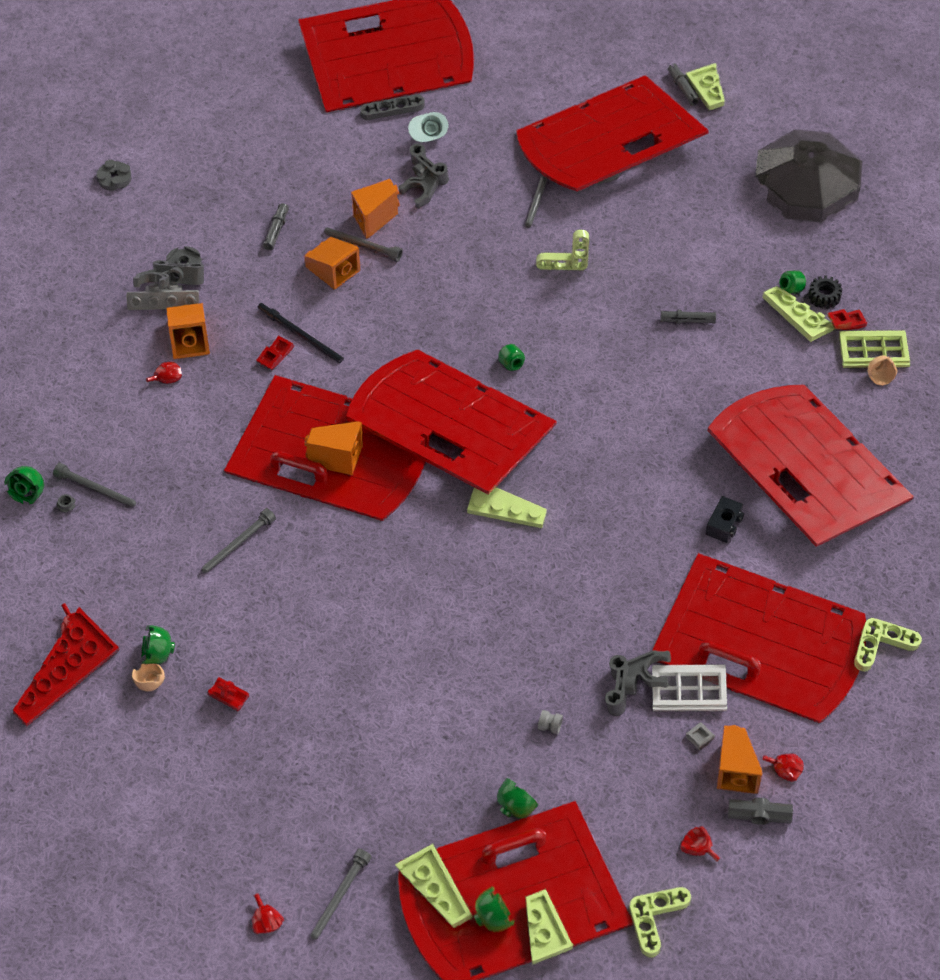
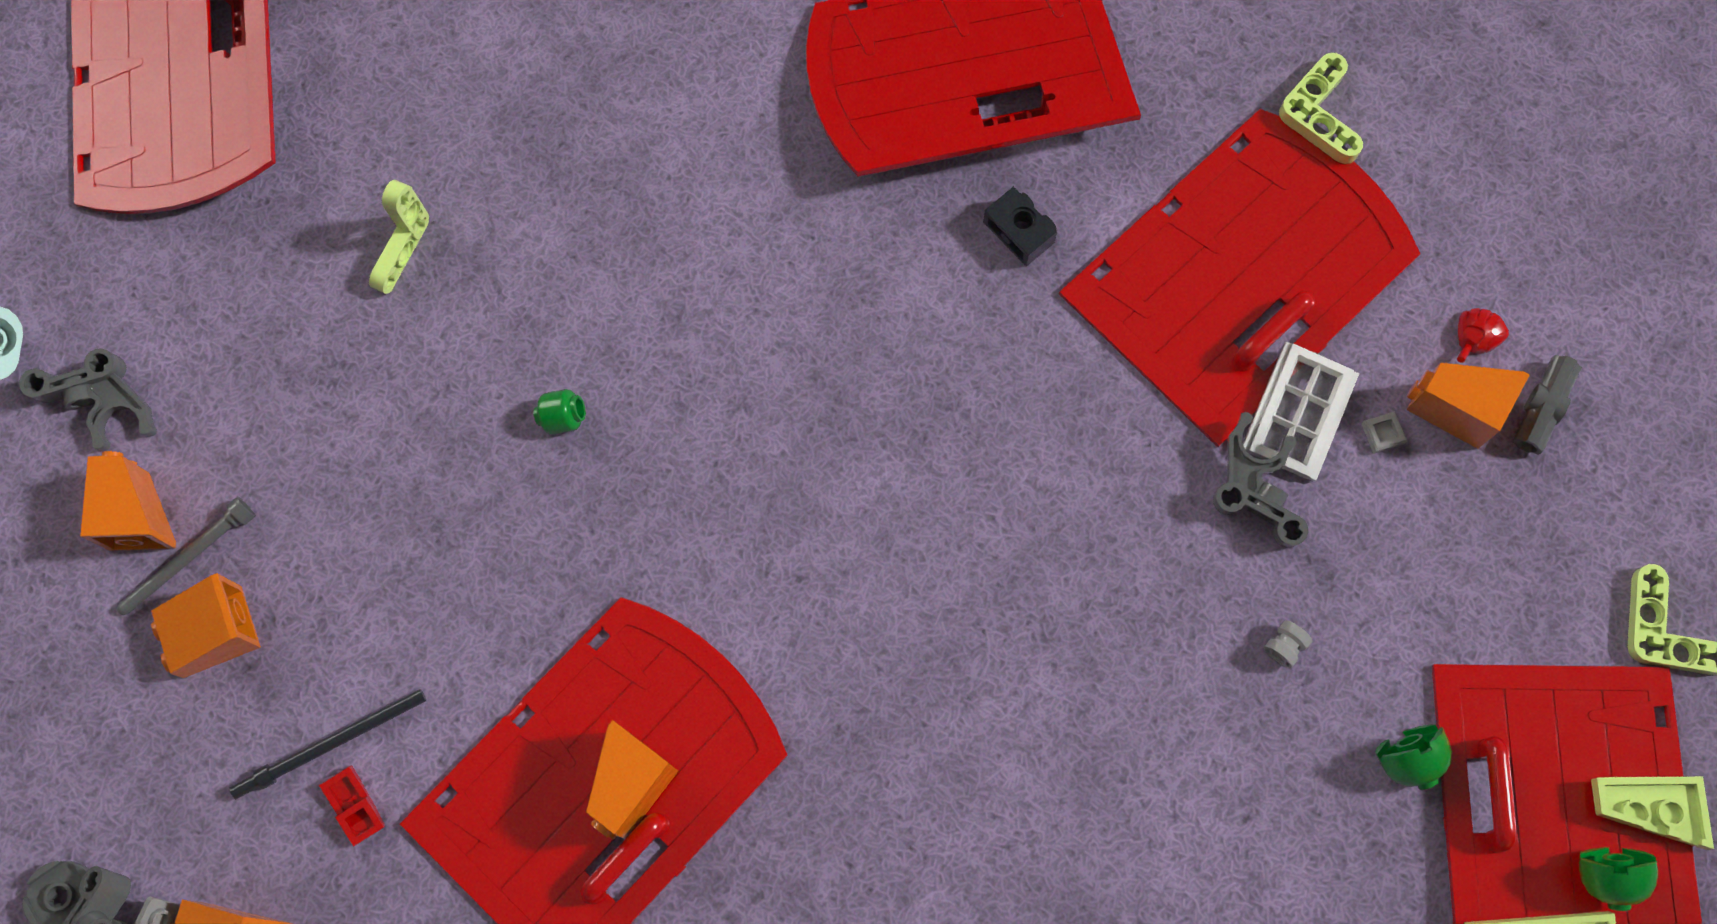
camera: 65 degrees left, 20 degrees up
(278, 221) = (58, 688): dark grey pin -> none
(414, 399) = (583, 594): red door -> none
(506, 507) = (841, 552): yellowish green wing -> none
(536, 201) = (247, 236): dark grey piece -> none
(689, 317) = (601, 120): dark grey pin -> none
(697, 843) = (1570, 516): red piece -> none

